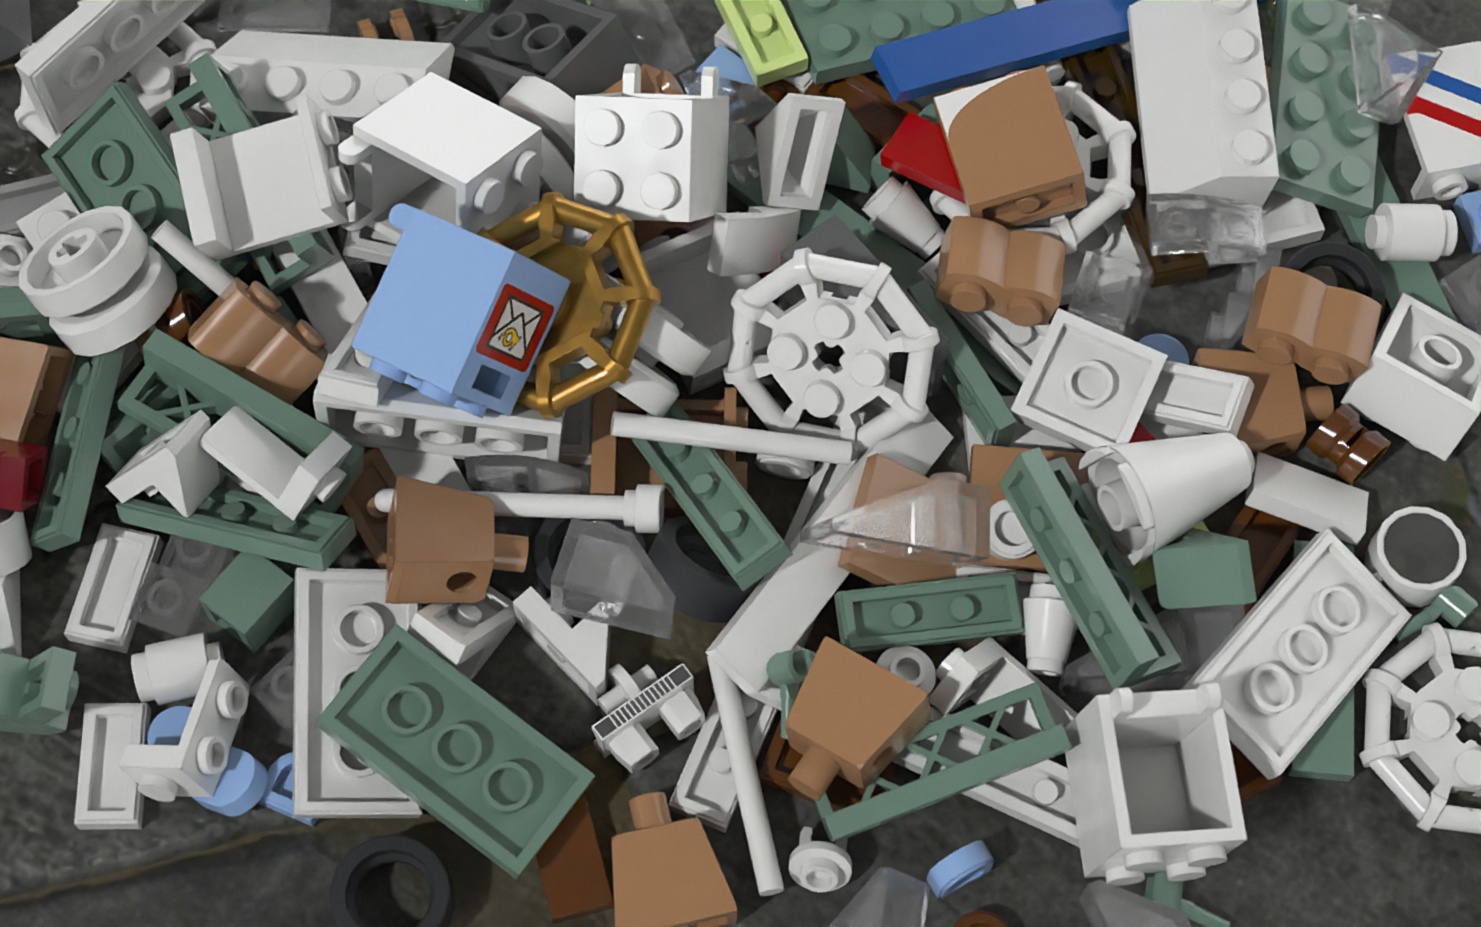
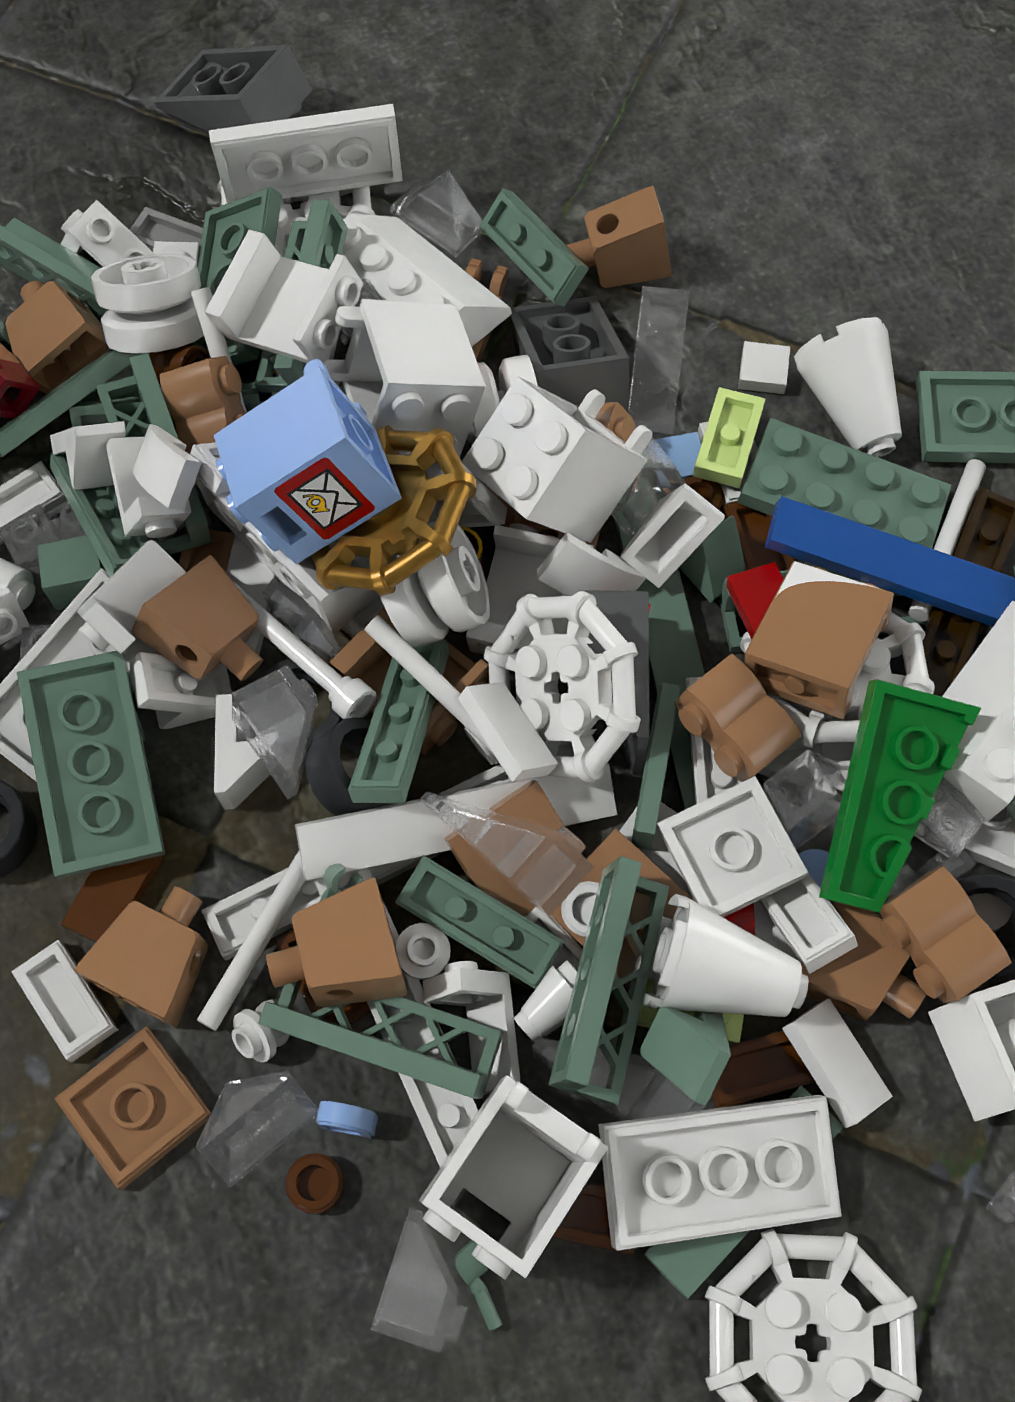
camera: 45 degrees right, 0 degrees up
(298, 419) = (166, 468): none -> white slope
(359, 570) = (116, 604): none -> white bracket
(666, 699) = (238, 828): white hips -> none
(816, 428) = (507, 731): none -> white tile
(904, 217) = (714, 632): white cone -> none
(1173, 222) = (894, 769): none -> green wing
(1347, 444) = (906, 1047): reddish brown wheel -> none
(1416, 555) = (885, 1174): piece -> none
(1452, 604) = (883, 1233): sand green hand -> none

